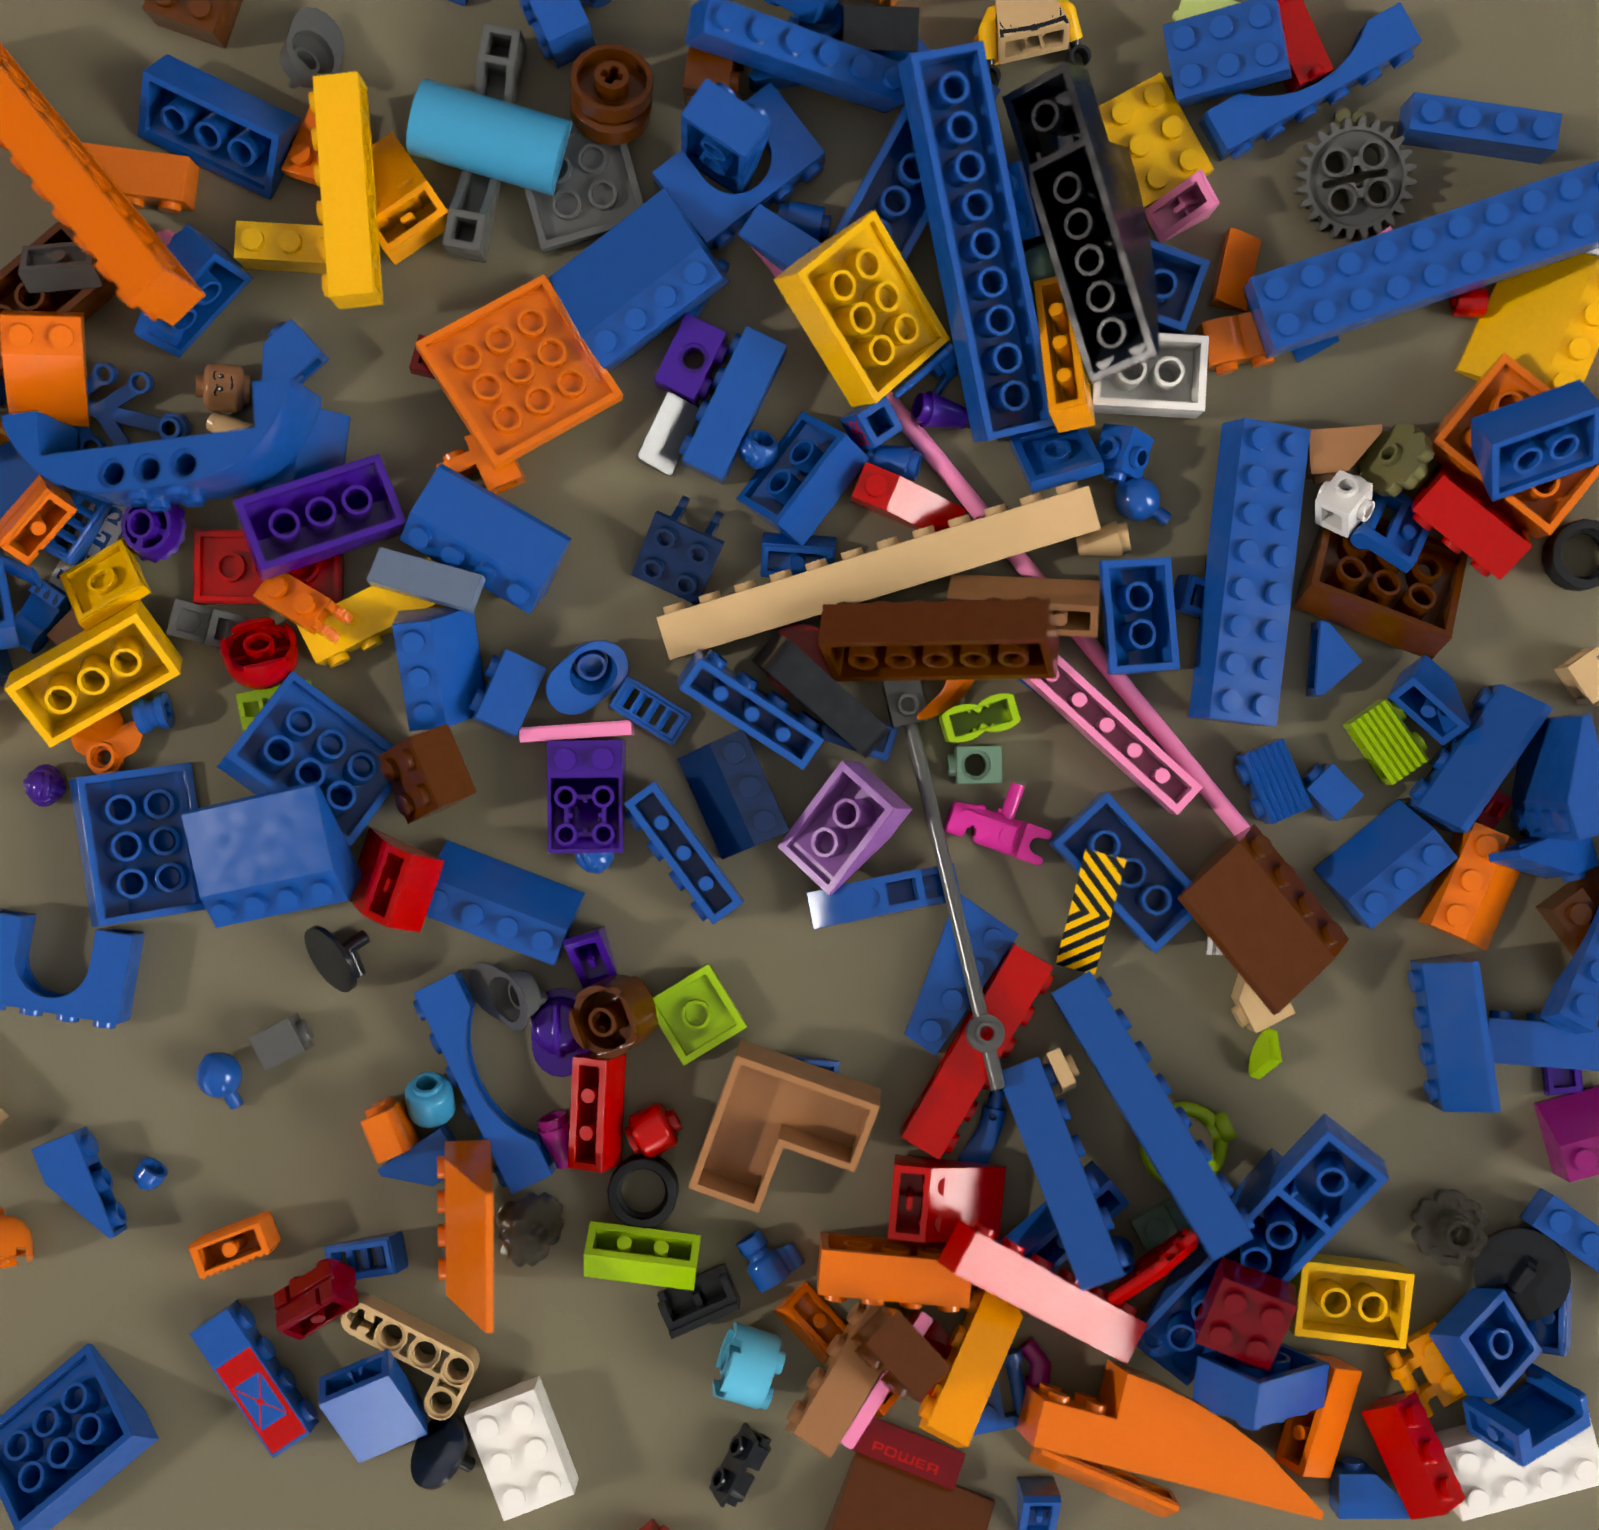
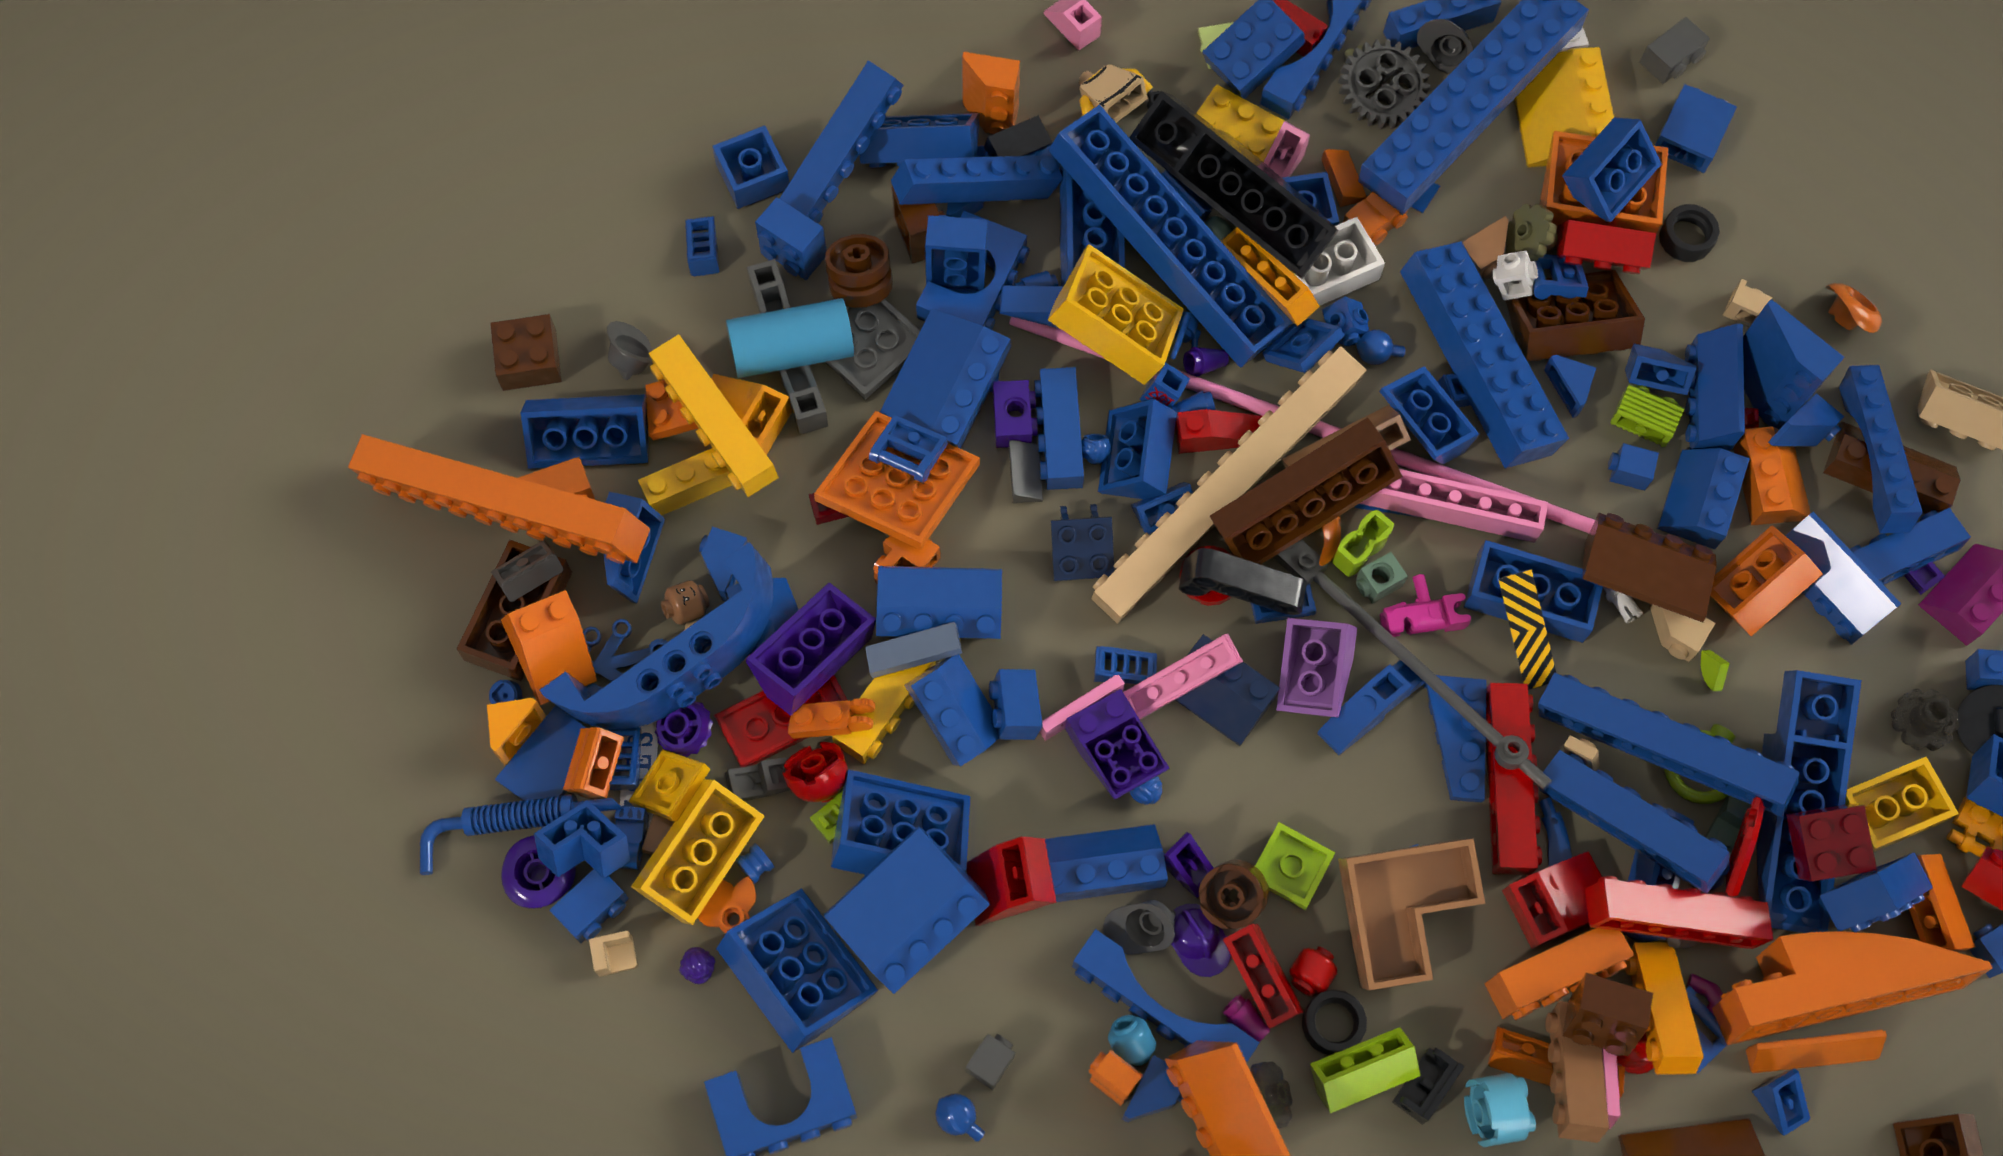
camera: 30 degrees left, 20 degrees down
(334, 960) = (994, 970): black shield -> none
(427, 773) = (991, 789): reddish brown brick -> none
(555, 336) = (910, 440): none -> blue plate
(586, 676) = (1067, 660): blue piece -> none
(684, 852) = (1213, 748): blue brick -> none
(693, 762) = (1183, 676): none -> bright pink tile
(750, 708) = (1196, 617): blue brick -> none
(768, 1266) = (1461, 1027): blue piece -> none
(911, 1453) = (1662, 1114): dark red tile -> none
(1108, 541) = (1370, 385): tan cone -> none
(1272, 782) = (1590, 480): blue brick -> none
(1378, 996) = (1763, 580): none -> orange slope
(1456, 170) = (1444, 44): none -> dark grey piece
(1470, 304) = (1508, 120): red hose -> none

